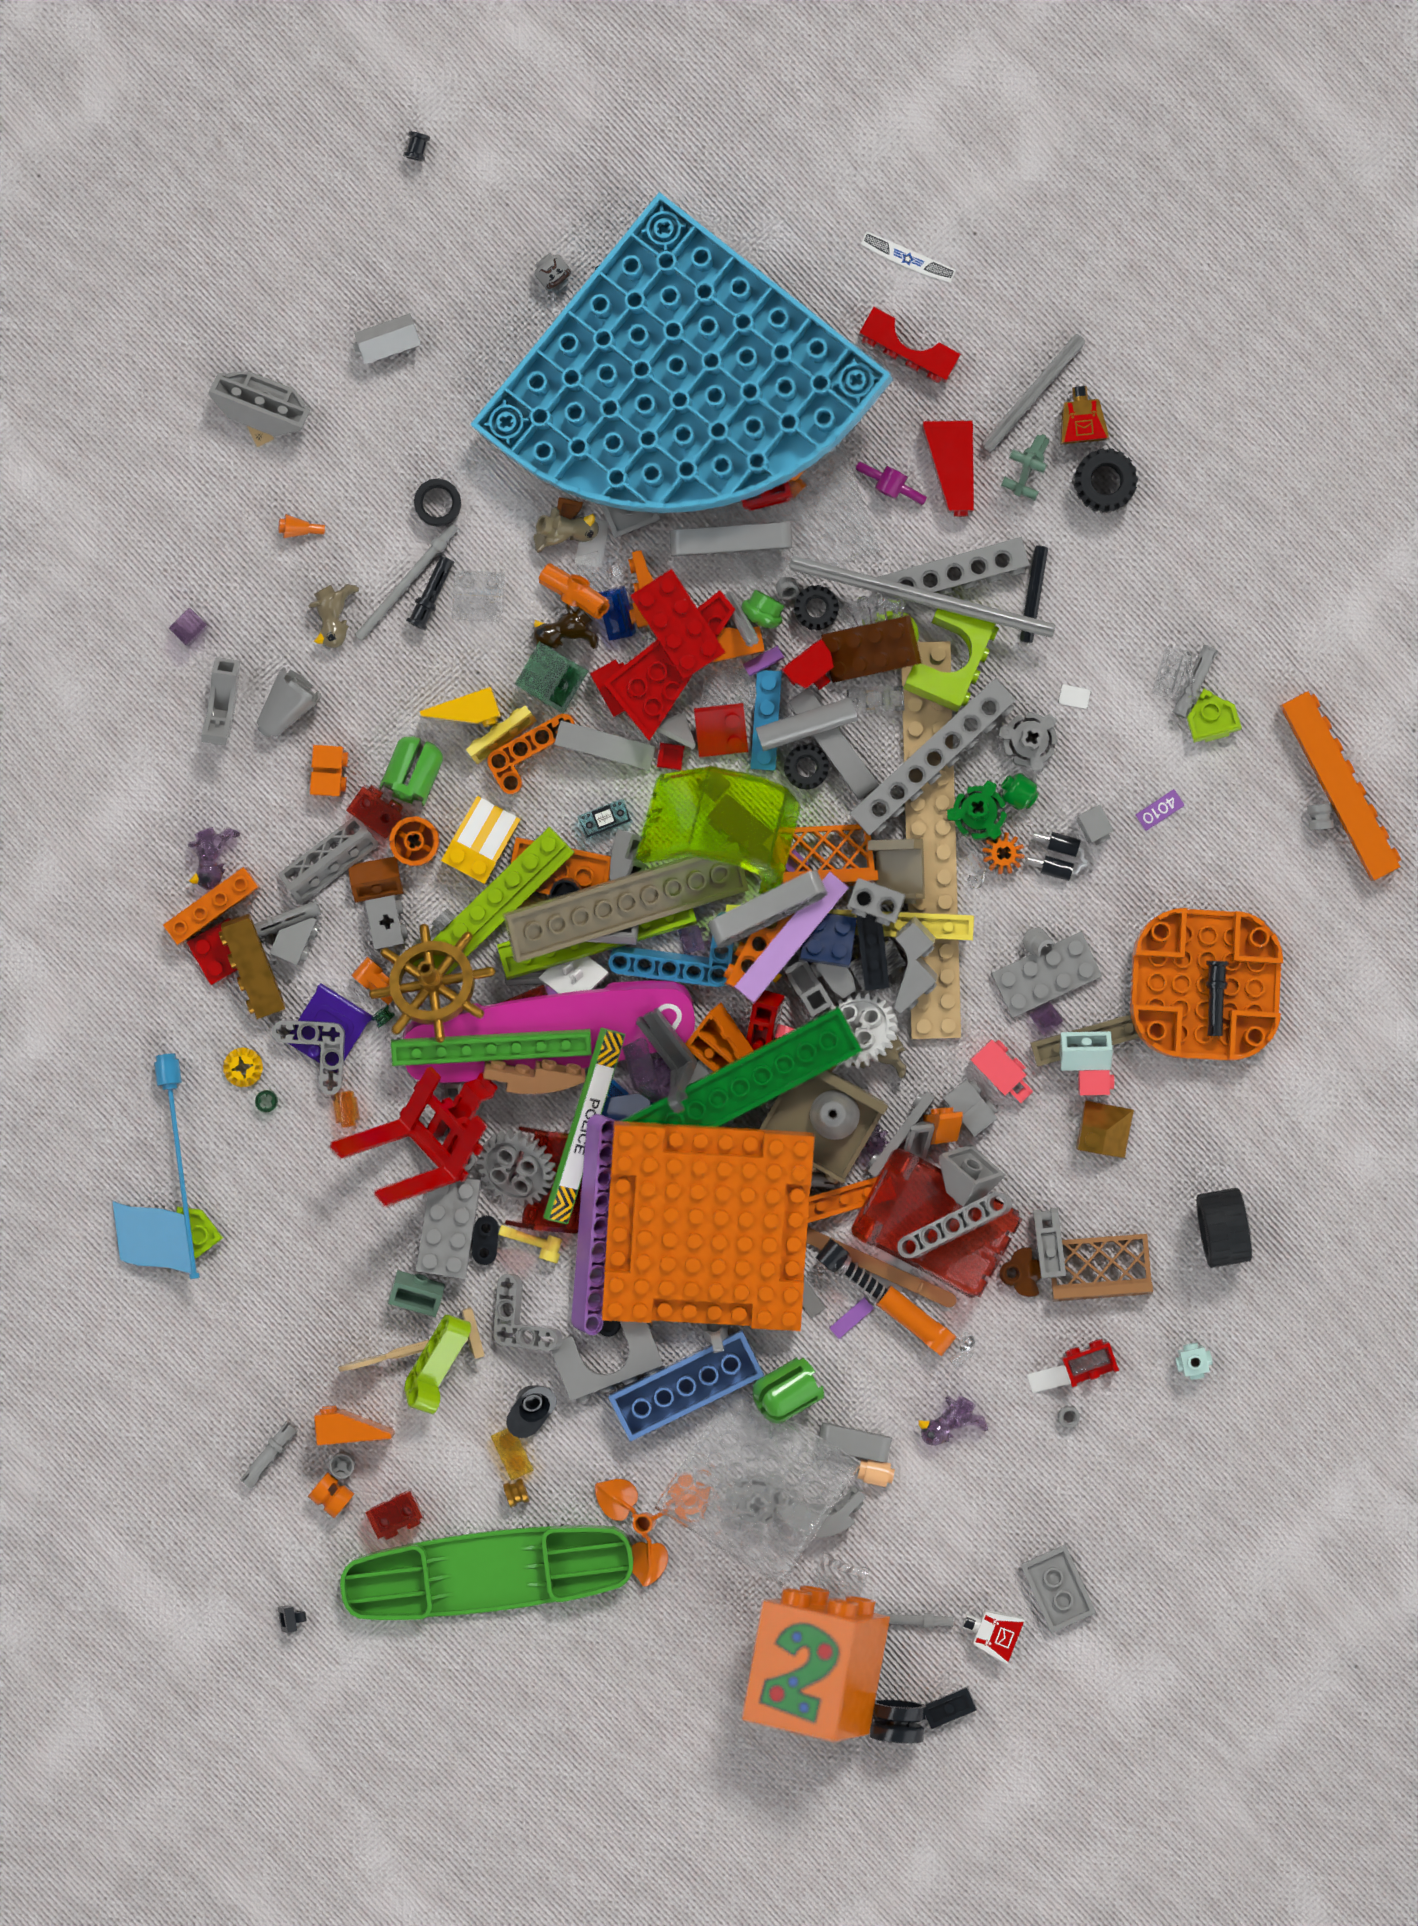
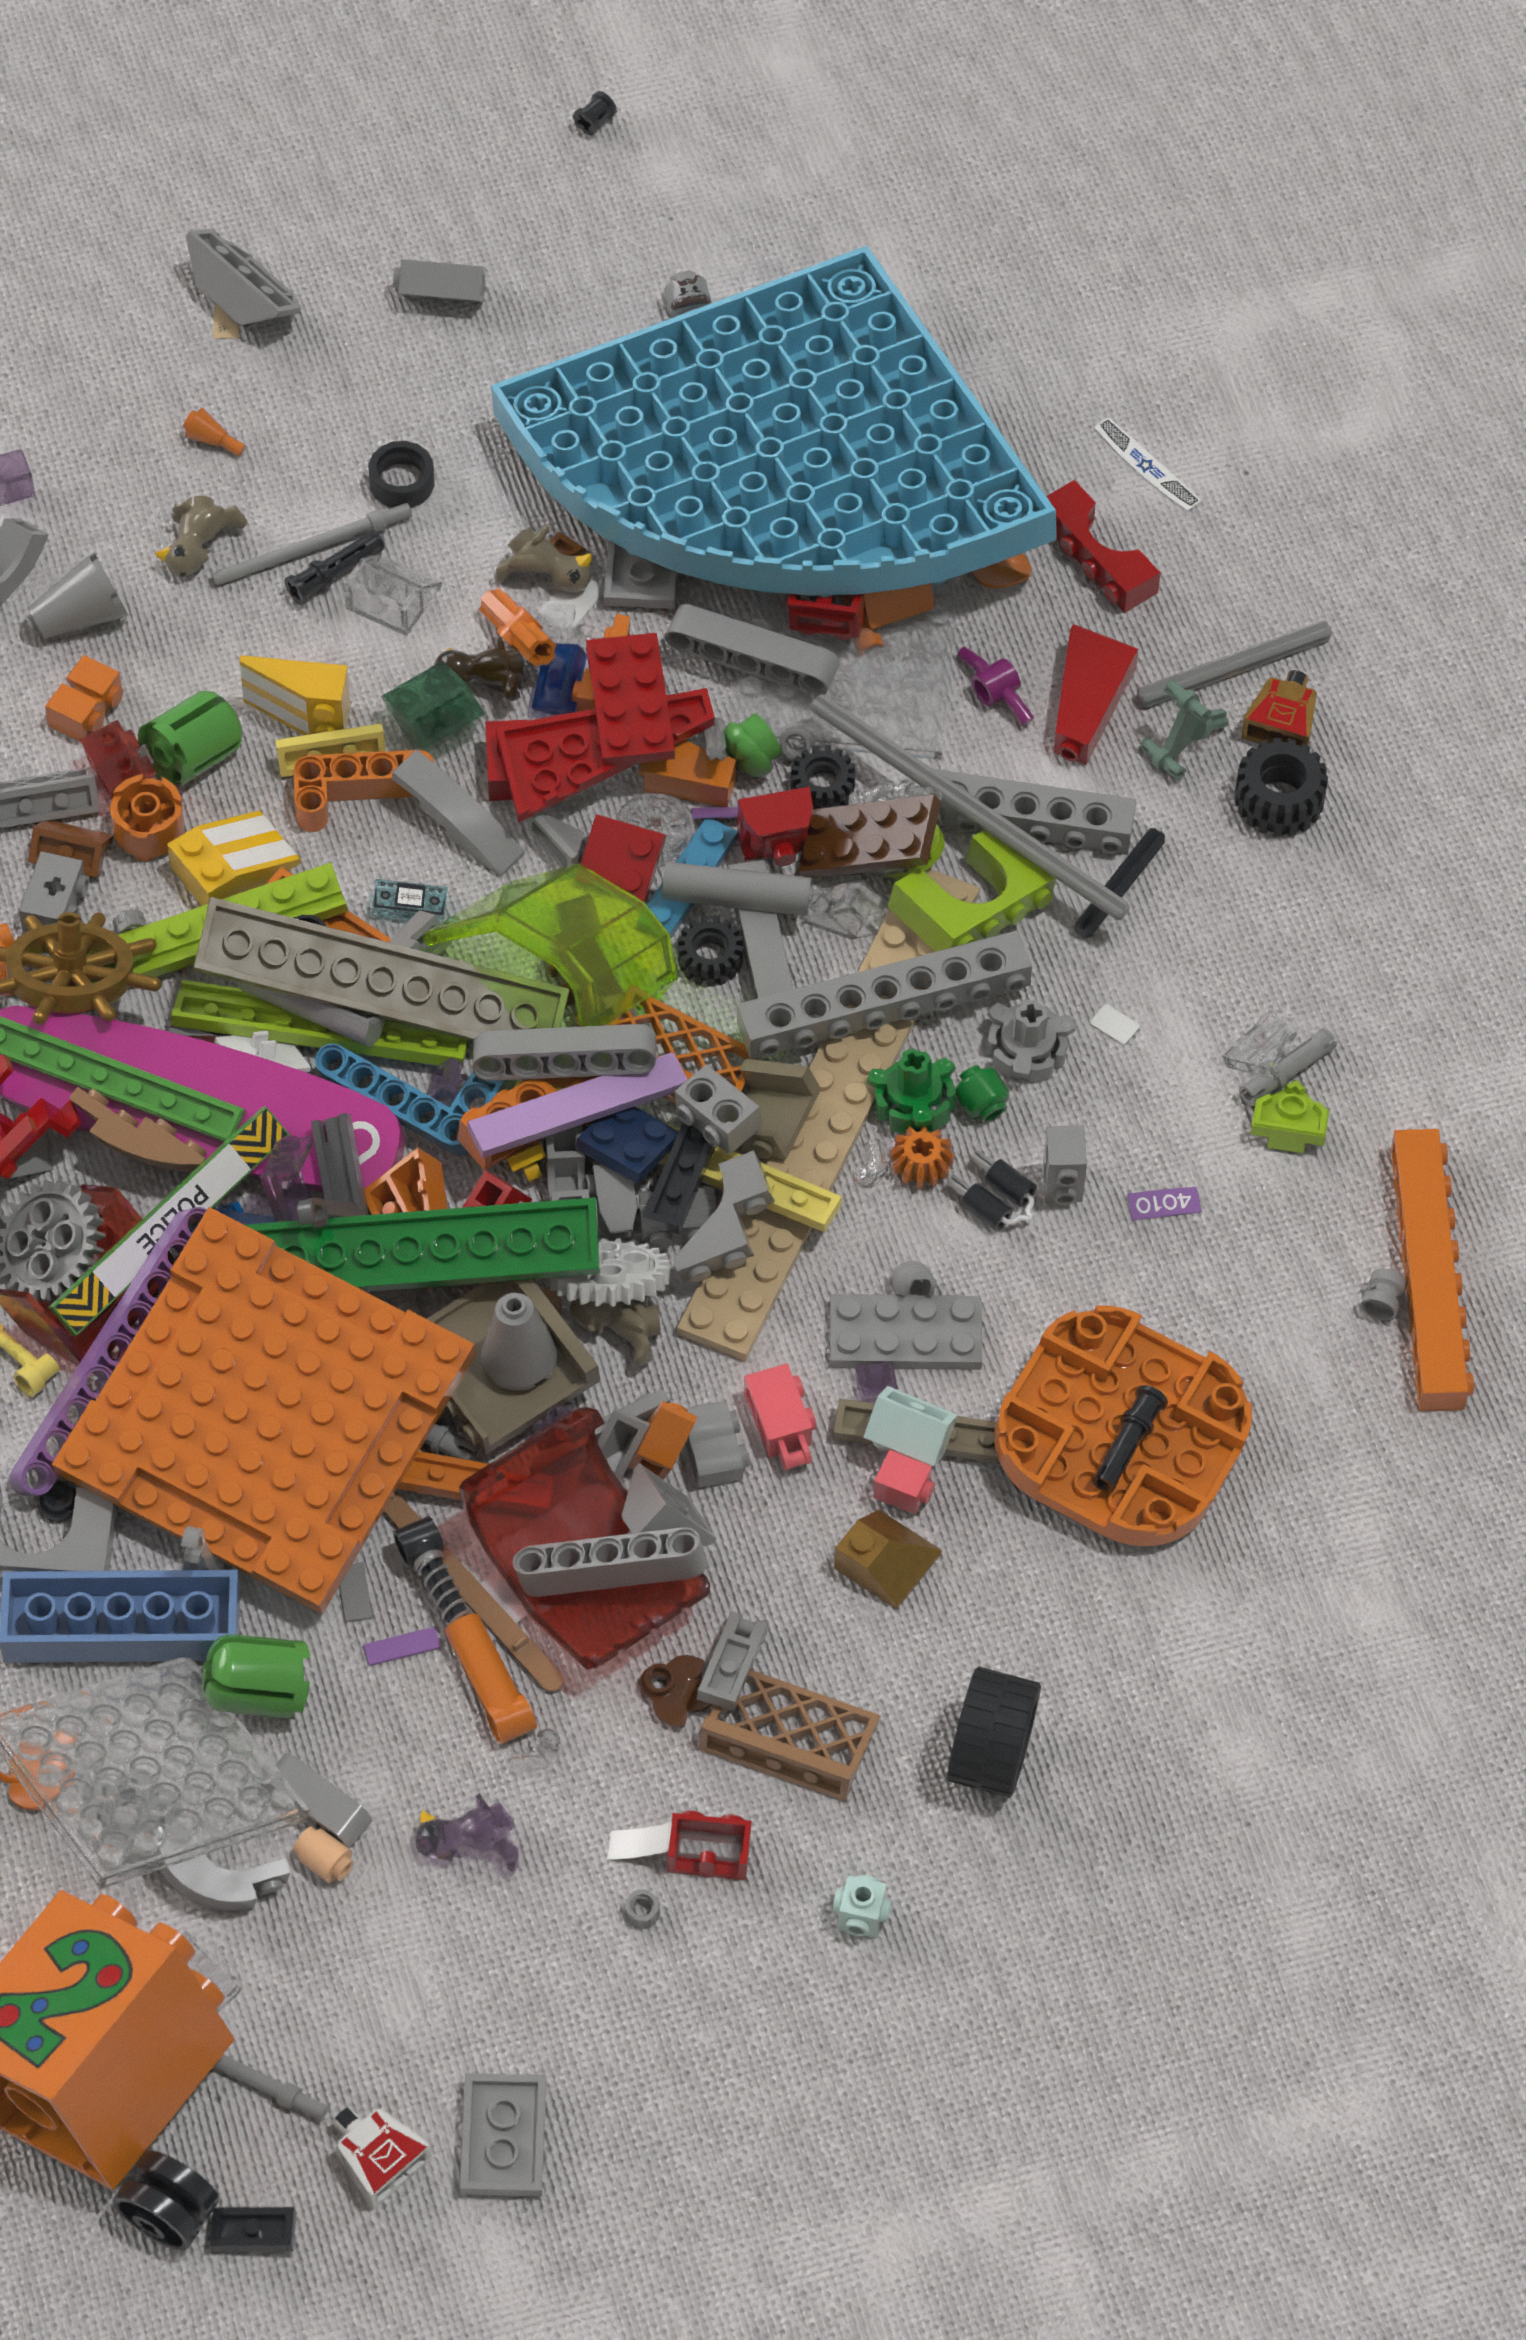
camera: 25 degrees right, 30 degrees down
(670, 756) = (535, 863): red tile -> none

